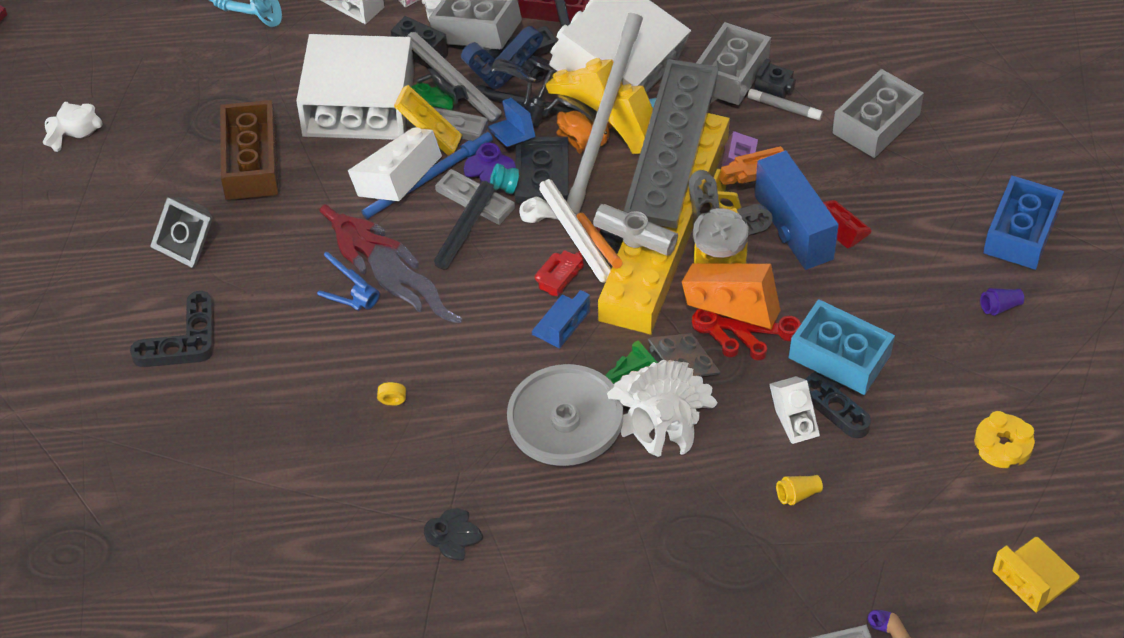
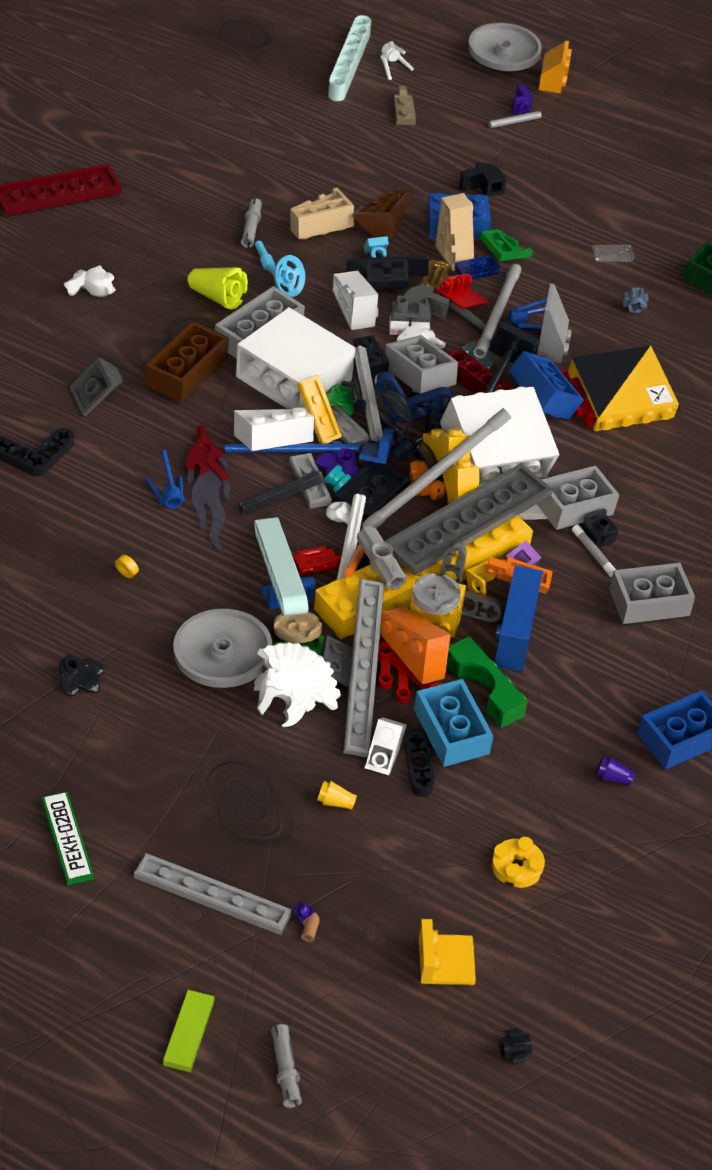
camera: 30 degrees right, 5 degrees down
(203, 52) = (220, 285): none -> neon yellow cone
(280, 66) = (254, 316): none -> light grey brick
(546, 298) = (281, 567): none -> light aqua beam
(607, 348) = (297, 628): none -> tan tile
(711, 347) = (363, 668): none -> light grey tile
(846, 292) = (469, 661): none -> green arch
(850, 228) = (551, 650): red slope -> none

